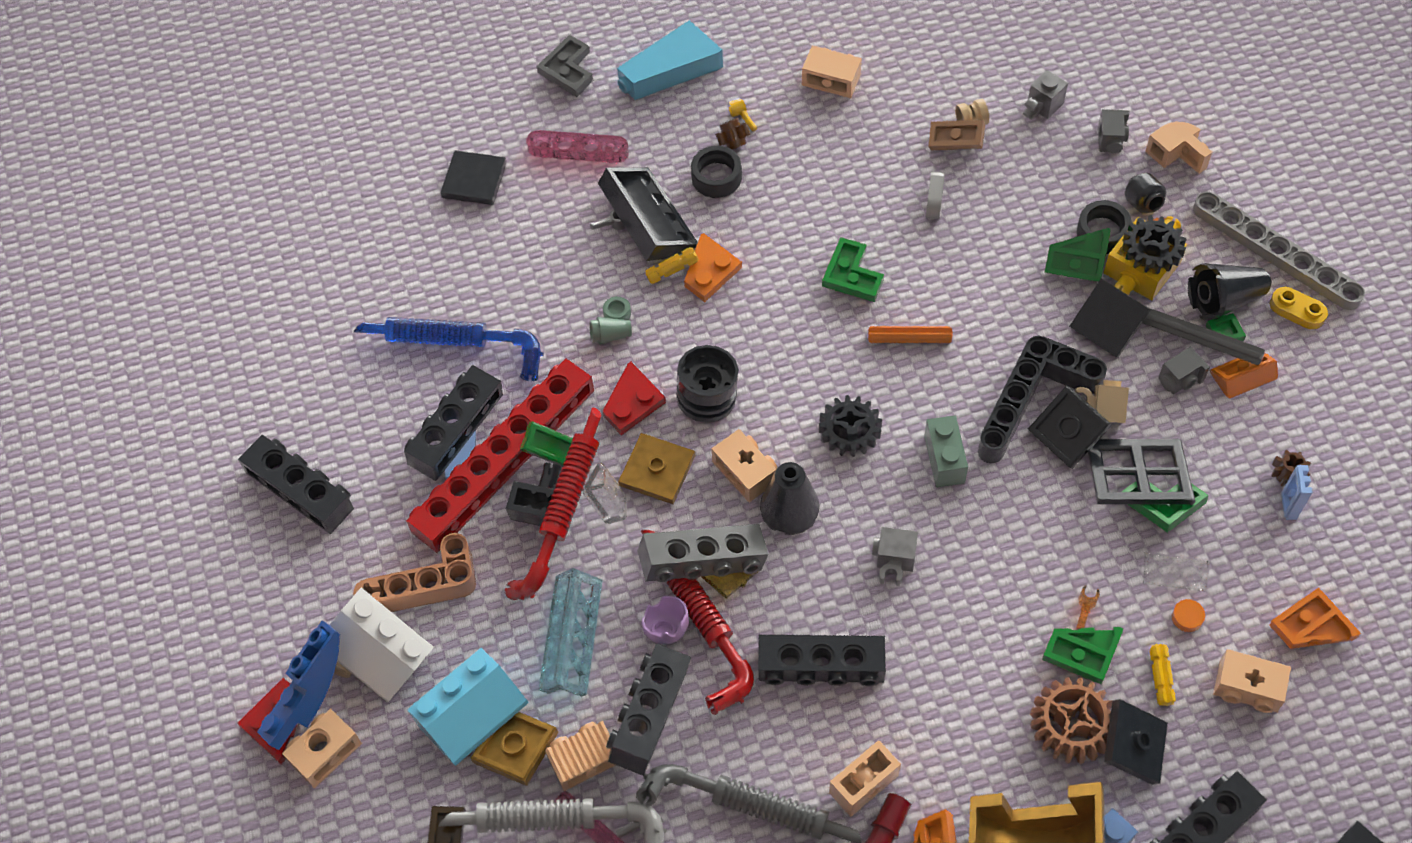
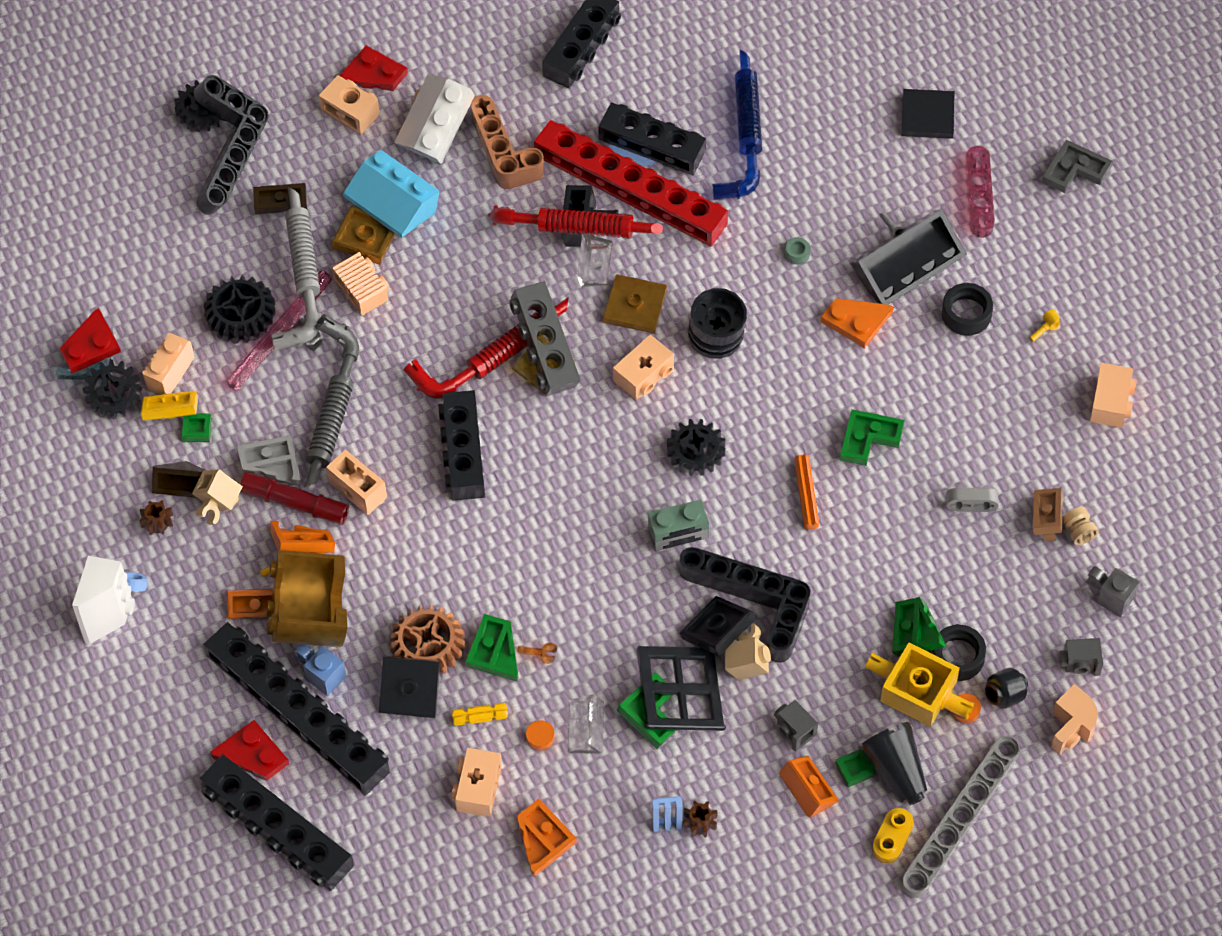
camera: 80 degrees right, 0 degrees up
(311, 677) = (389, 75): blue slope -> none
(546, 443) = (640, 205): green tile -> none
(561, 633) = (463, 251): clear light blue fence -> none
(609, 329) = (771, 244): sand green cone -> none
(632, 400) = (702, 273): red wing -> none
(635, 751) = (386, 323): black brick -> none
(666, 620) = (483, 324): lavender hair -> none
(670, 61) = (1096, 252): medium azure slope -> none
(671, 265) = (849, 285): yellow axle -> none
(733, 134) = (1013, 316): reddish brown gear -> none
(789, 500) = (611, 405): black cone -> none
(895, 552) = (572, 494): flat silver brick -> none
(1109, 318) = (844, 655): black tile -> none
(1154, 244) = (924, 666): black gear -> none
(1204, 336) = (841, 733): dark grey axle -> none

